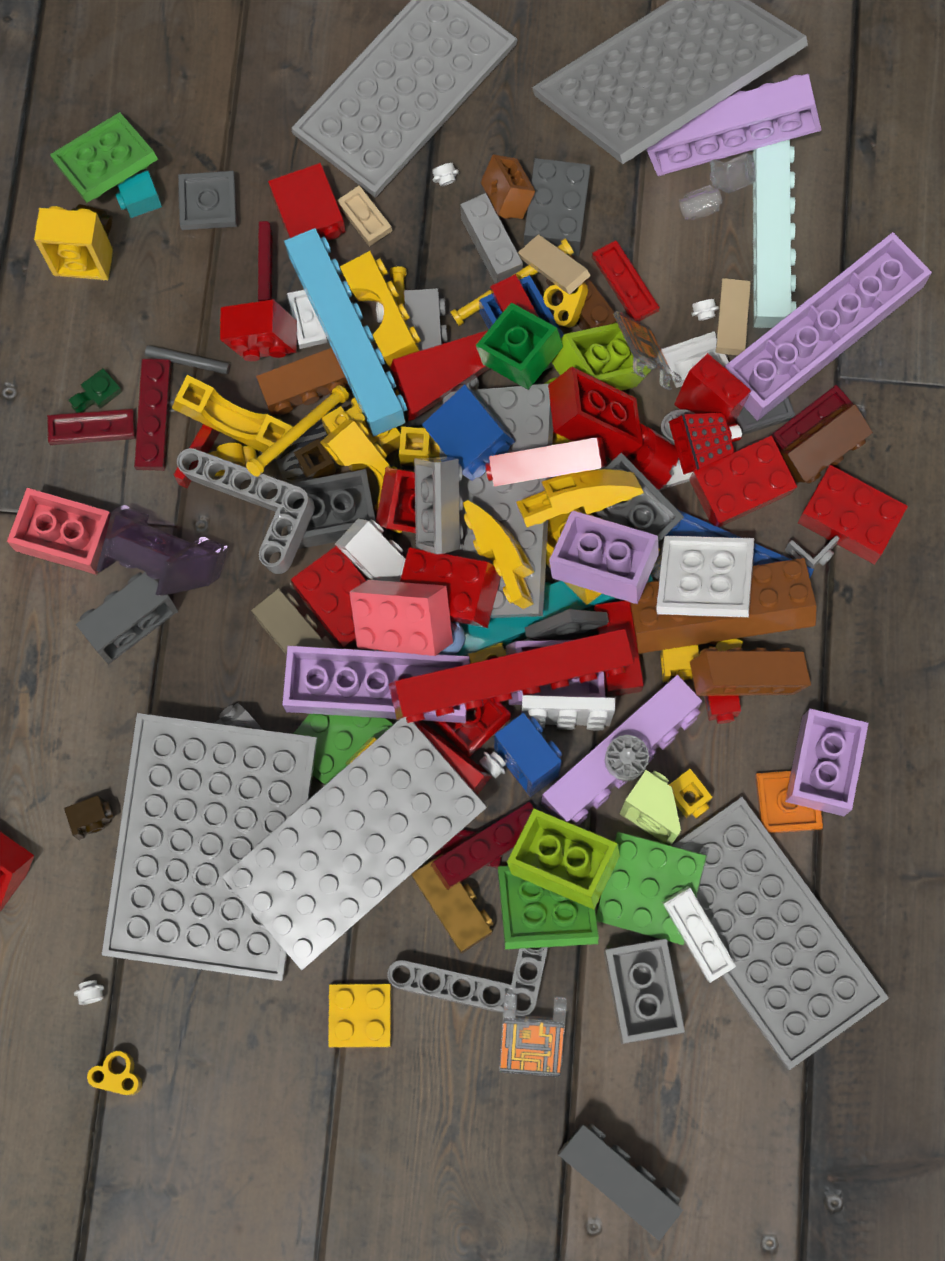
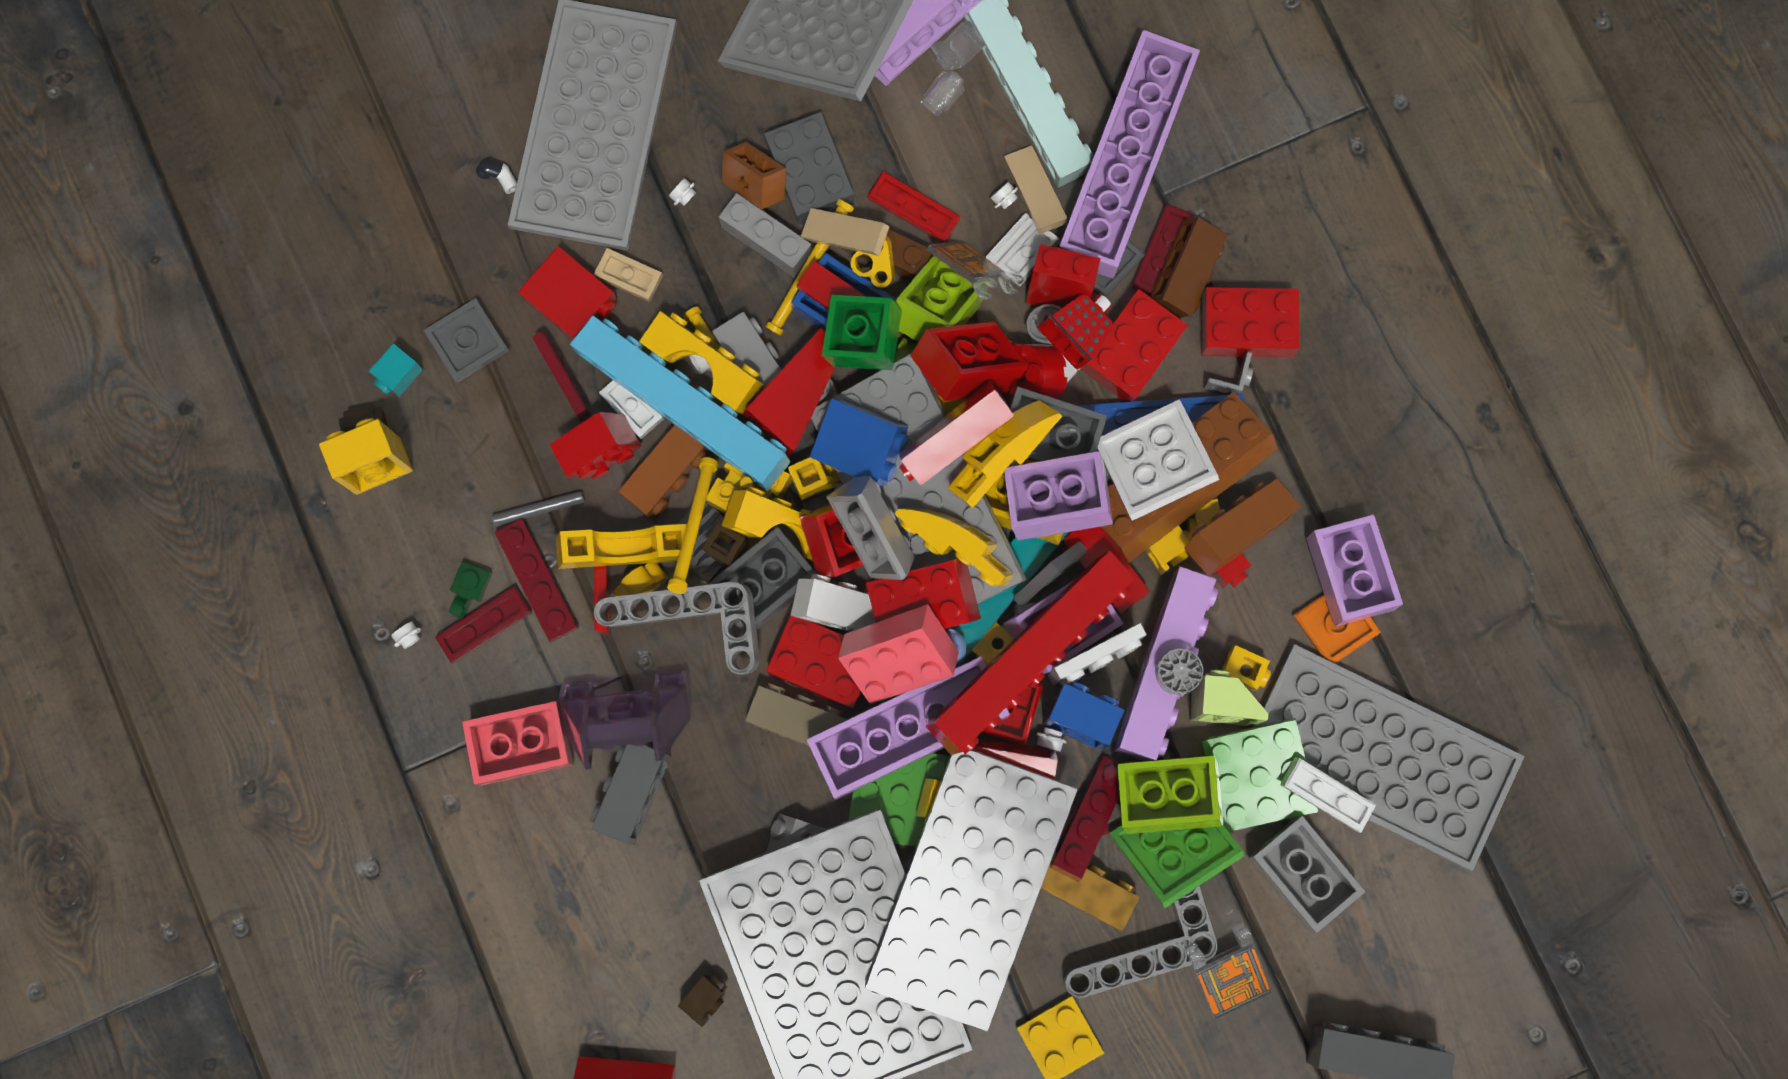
camera: 30 degrees left, 5 degrees up
(26, 402) = (406, 635): none -> white plate
(103, 157) = (340, 352): bright green plate -> none
(304, 79) = (498, 170): none -> arm

